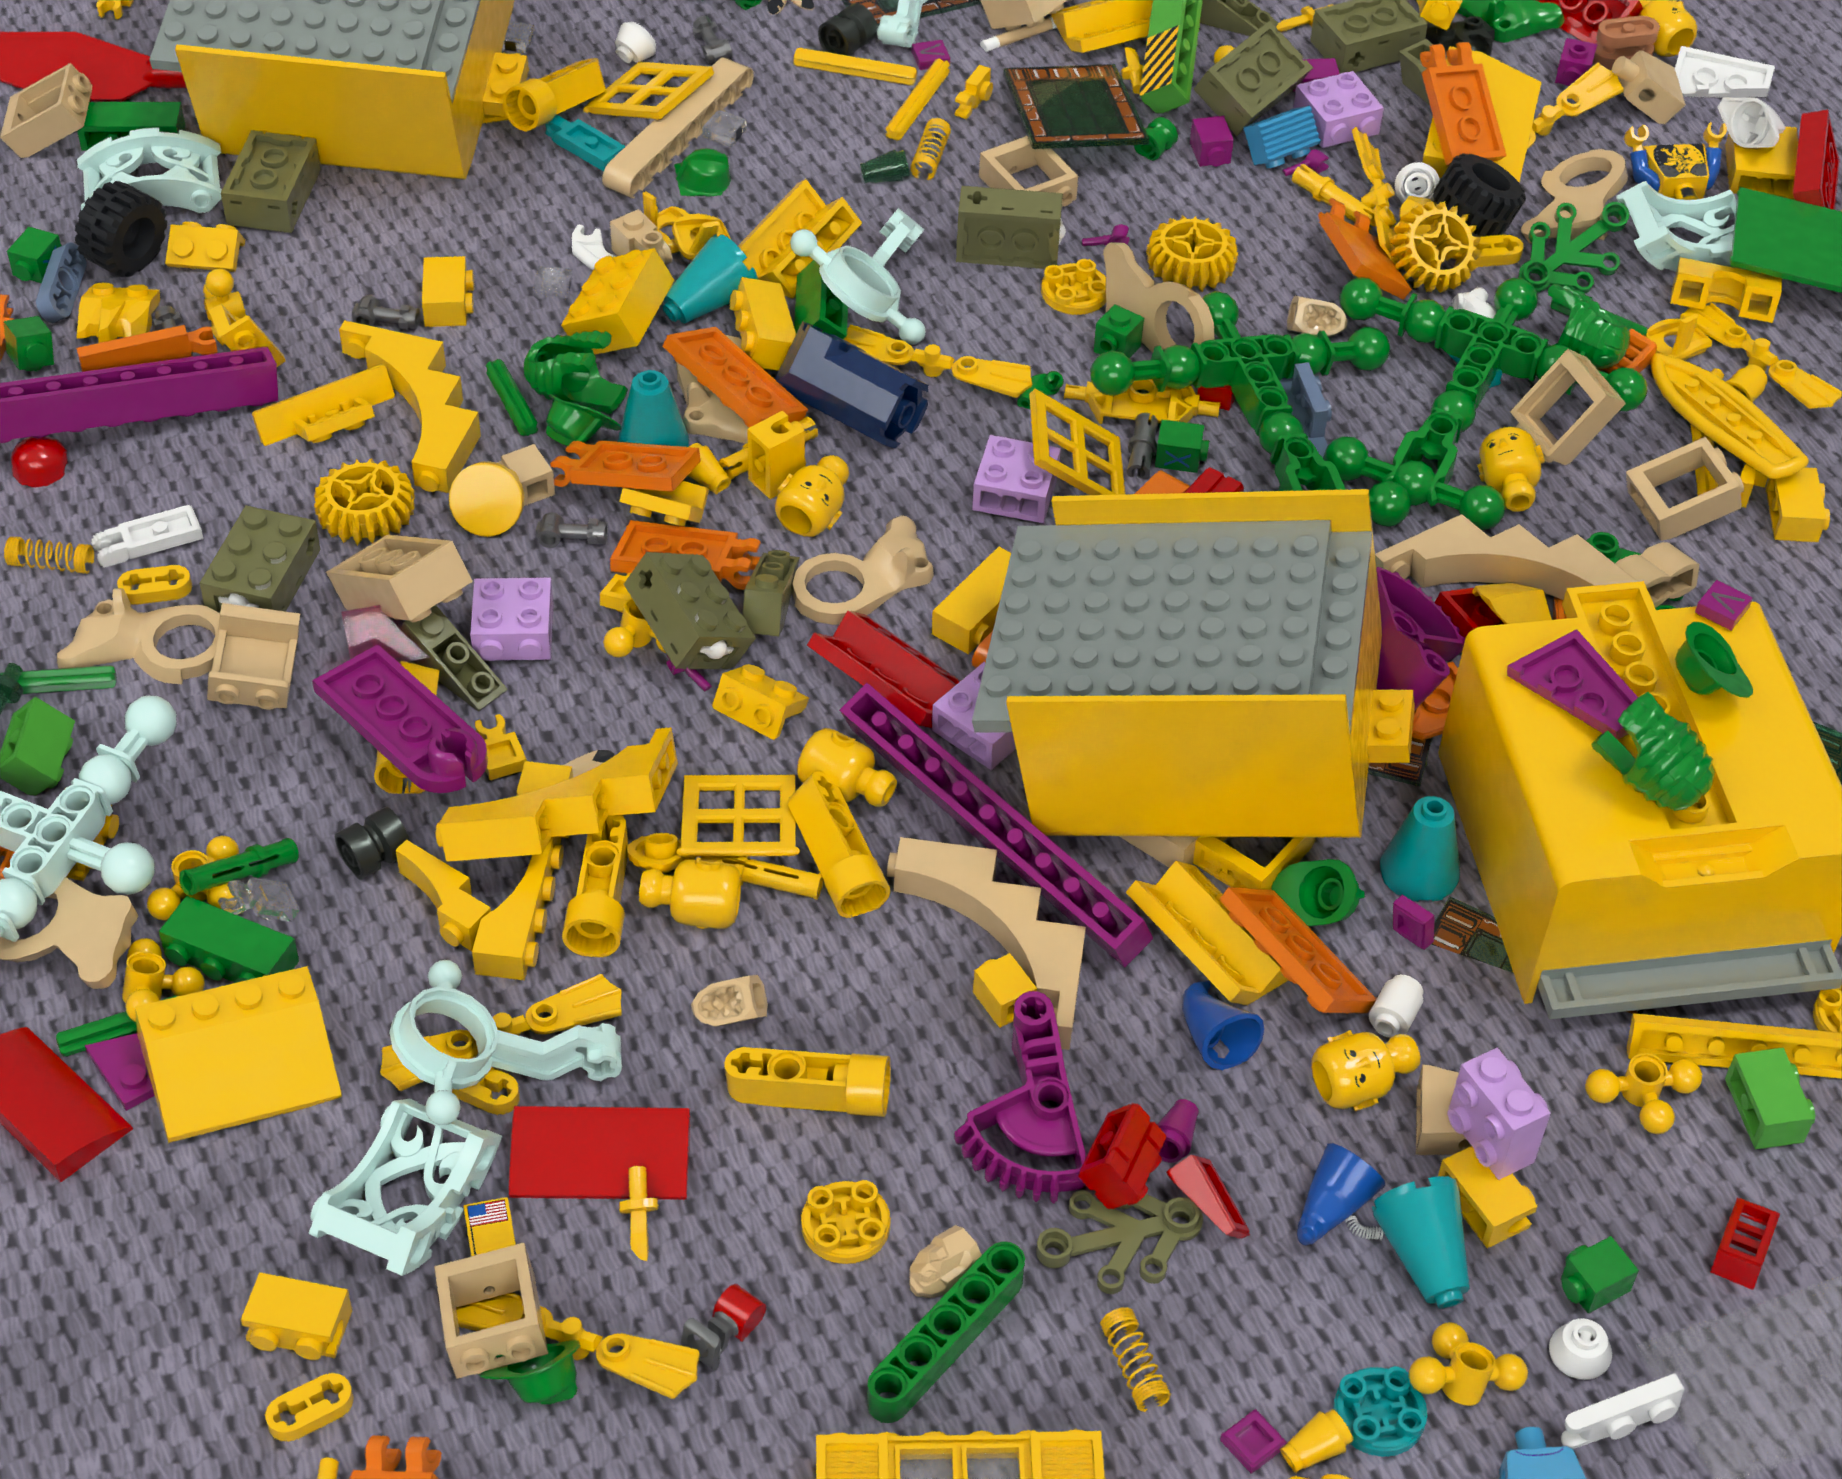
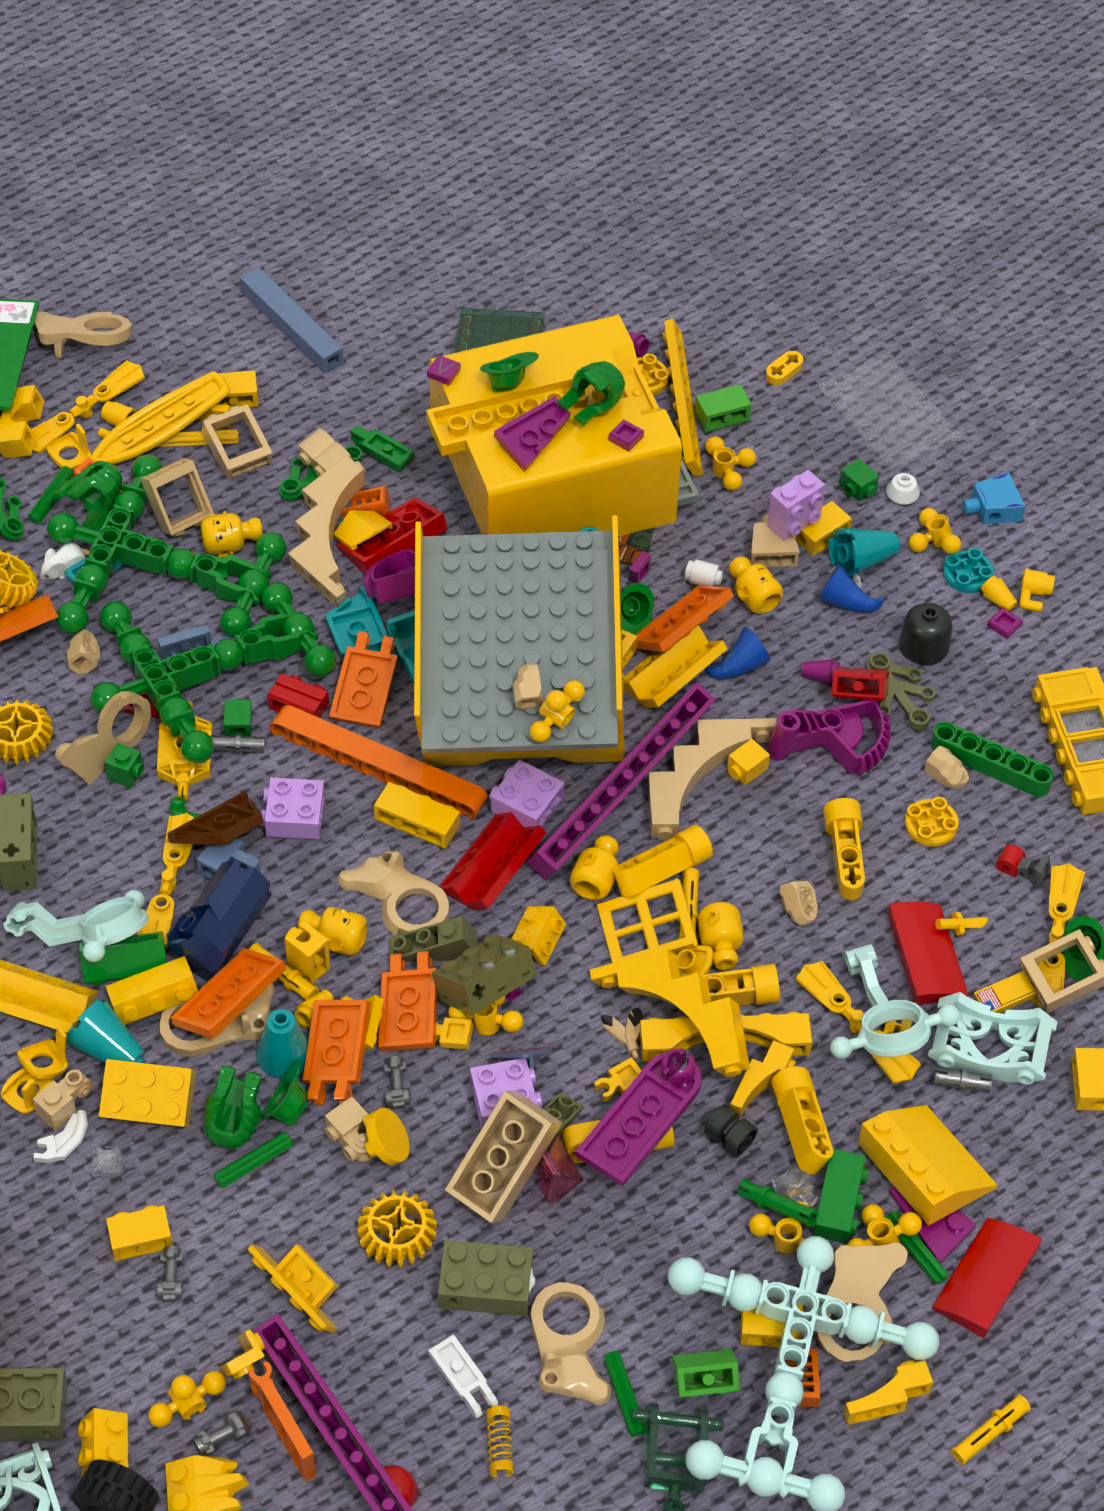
camera: 100 degrees left, 5 degrees up
(155, 584) = (505, 1358): yellow beam -> none
(254, 657) = (583, 1255): tan panel -> none
(359, 1140) = (962, 1080): none -> flat silver pin
(401, 922) = (802, 1118): none -> yellow beam
(417, 374) = (312, 1190): yellow arch -> none
(572, 650) = (522, 1053): none -> sand blue piece
(949, 413) = (214, 855): none -> sand blue brick
(995, 396) = (220, 823): none -> reddish brown wing
(1026, 636) = (557, 710): none -> yellow piece
(1073, 611) = (527, 687): none -> tan rock
(1074, 287) = (62, 804): yellow tile -> none
(1078, 426) = (296, 764): yellow window -> none
(1158, 1387) = (957, 680): yellow piece -> none
(1206, 1190) = (859, 653): slope -> none
(1224, 1287) = (926, 634): none -> pearl dark grey cylinder
(1577, 806) = (626, 435): none -> magenta tile
(1624, 1412) = (940, 468): white hinge -> none
(1738, 1265) = (826, 429): red slope -> none

